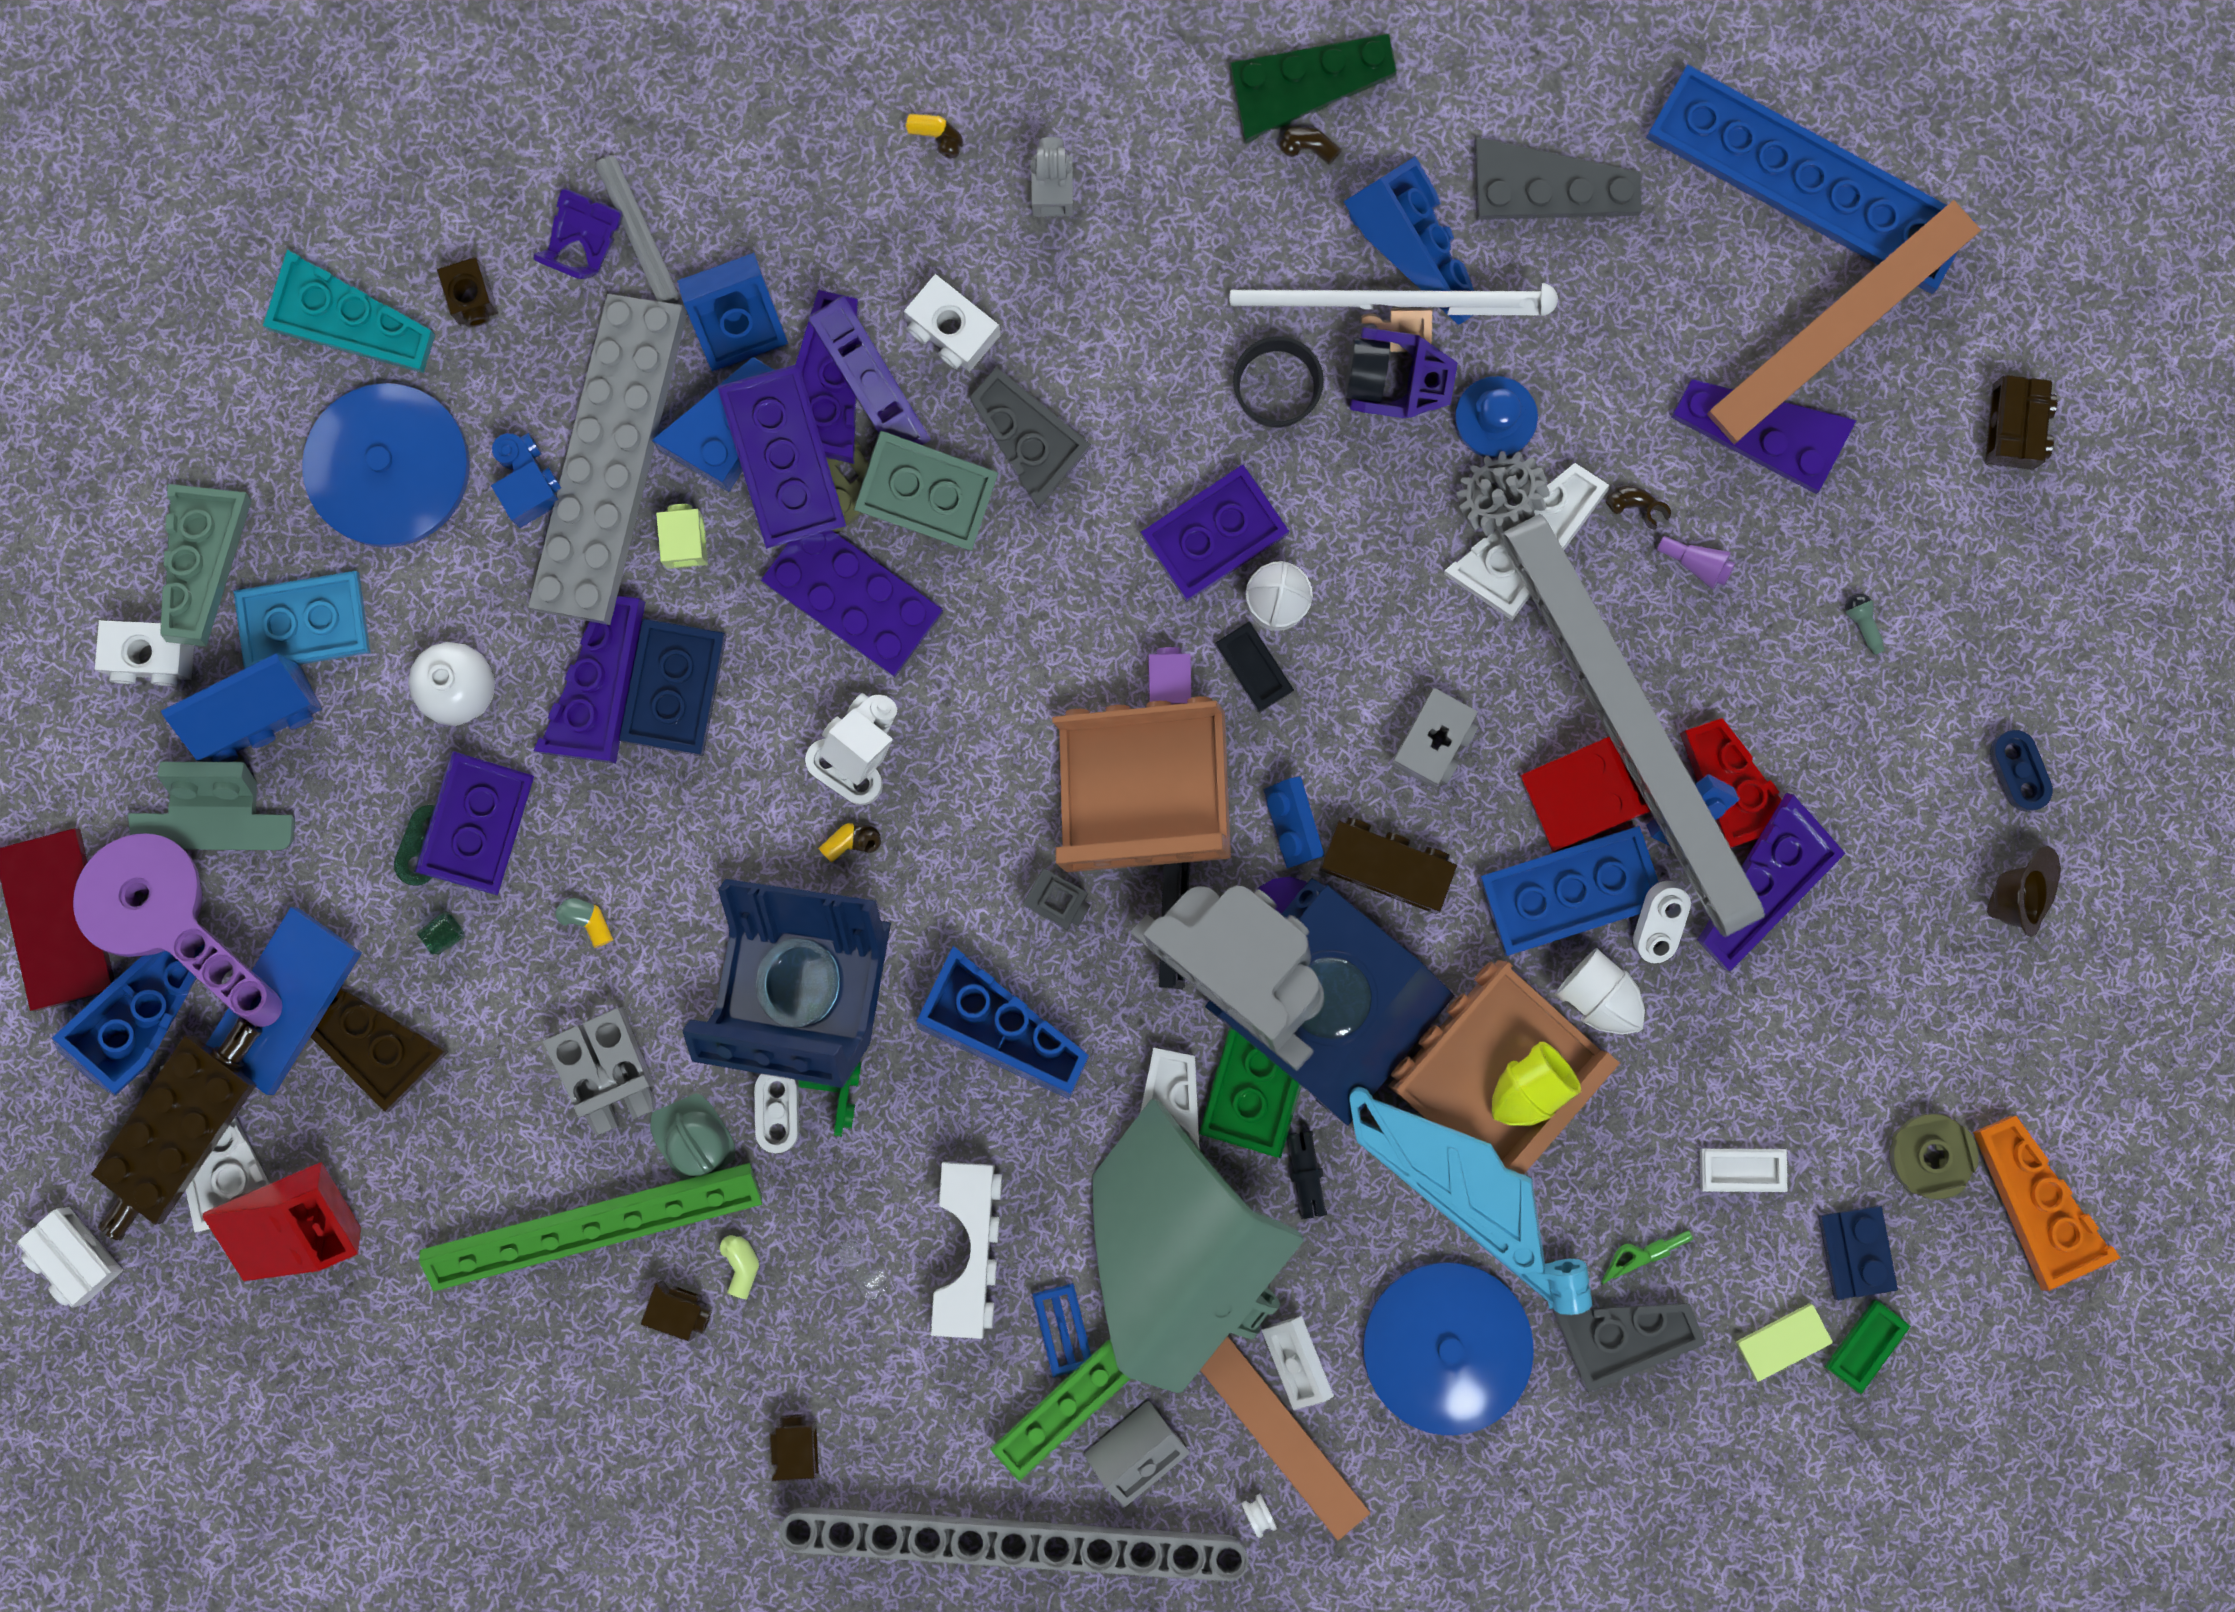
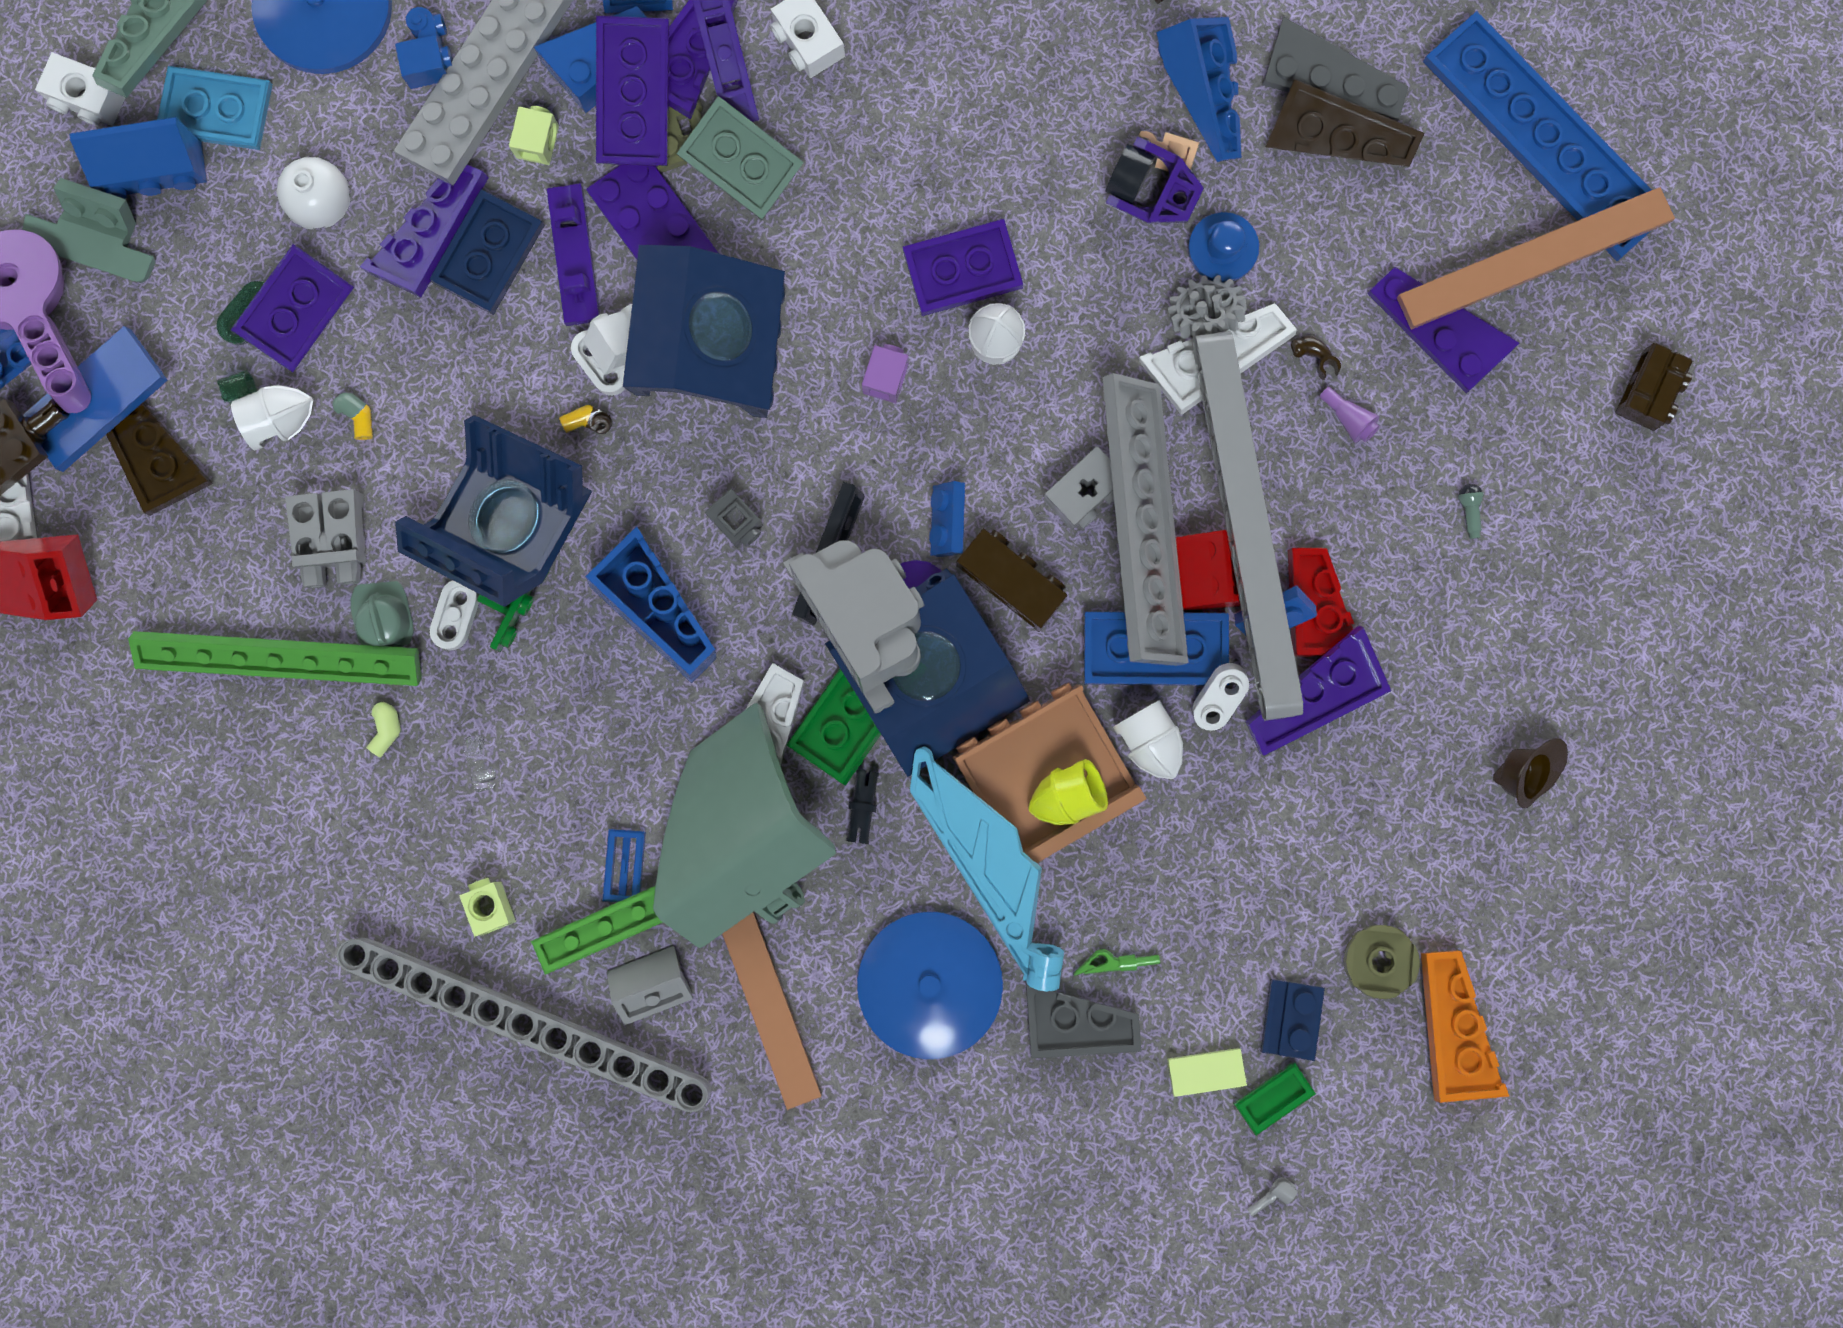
camera: 25 degrees right, 0 degrees up
(494, 951) = (271, 413): none -> white helmet
(676, 1312) = (319, 748): dark brown window -> none
(771, 659) = (573, 254): none -> dark purple hinge
(794, 1448) = (376, 888): dark brown window -> none
(932, 1446) = (501, 915): none -> yellowish green brick
(955, 698) = (704, 327): none -> dark blue panel
(962, 1305) = (550, 818): white arch -> none
(1029, 435) = (840, 142): dark grey wing -> none
(1143, 785) = (834, 448): nougat panel -> none
(1254, 667) = (958, 386): black tile -> none
(1259, 1516) = (730, 1068): white bush -> none
(1290, 346) = (1060, 131): black tyre -> none
(1297, 1363) = (803, 955): white plate -> none
(1459, 302) = (1222, 141): white bar -> none
(1516, 755) = (1144, 521): none -> light grey plate
(1573, 244) = (1334, 127): none -> dark brown wing
(1743, 1170) = (1220, 921): white tile -> none
(1909, 1444) = (1281, 1189): none -> light grey hand
(2025, 768) = (1564, 672): dark blue plate -> none

